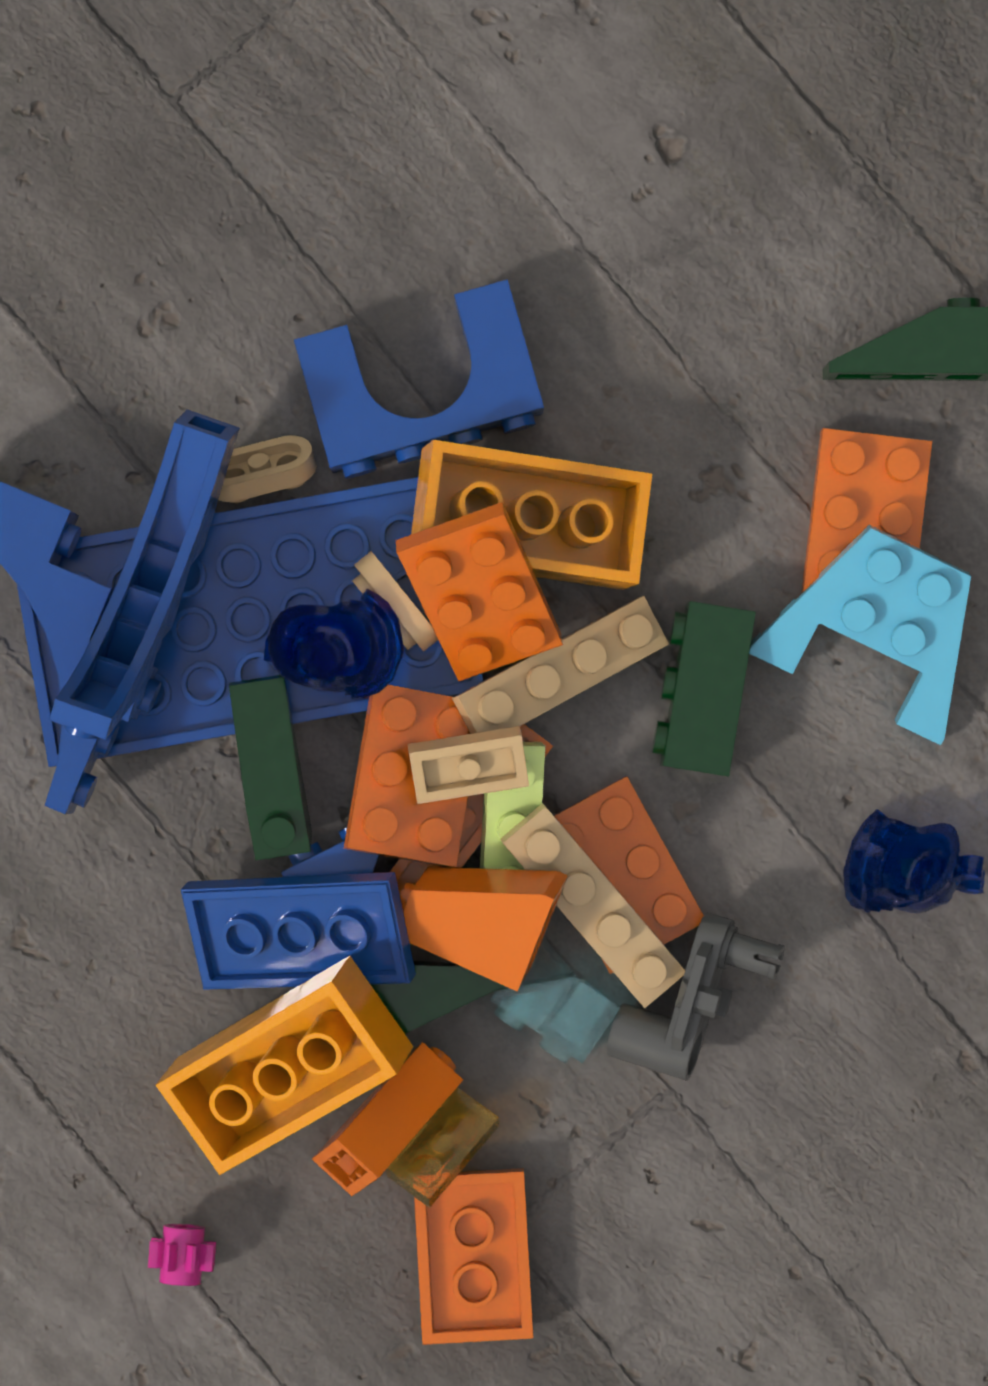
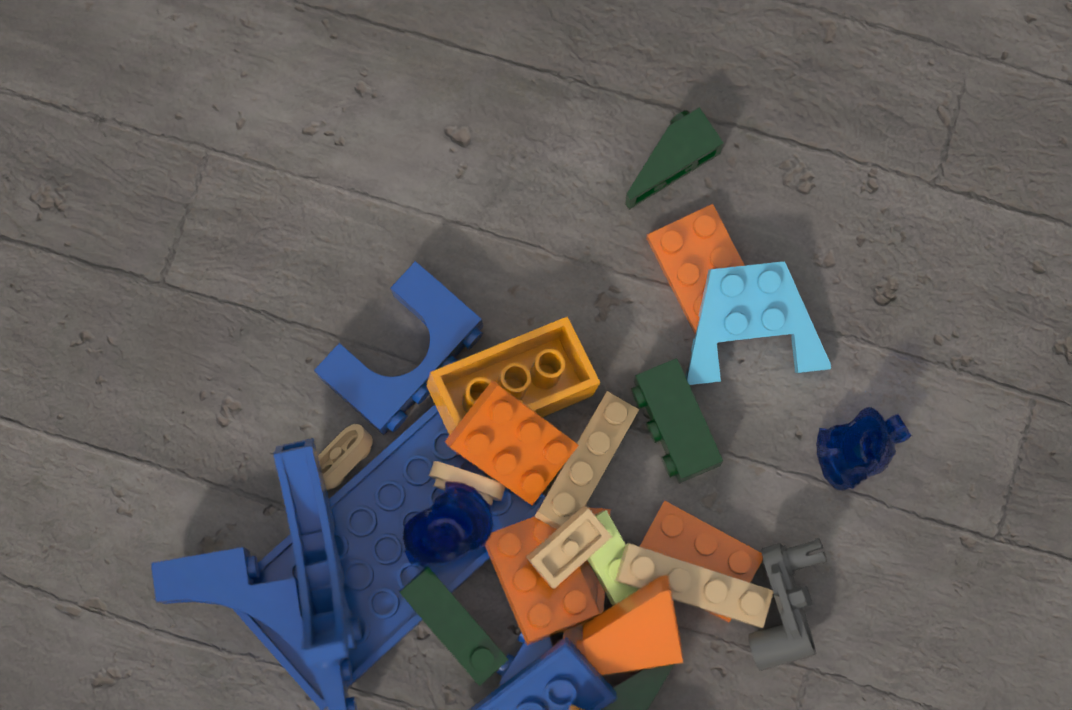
camera: 30 degrees left, 10 degrees down
(561, 1009) = (717, 661): clear light blue slope -> none

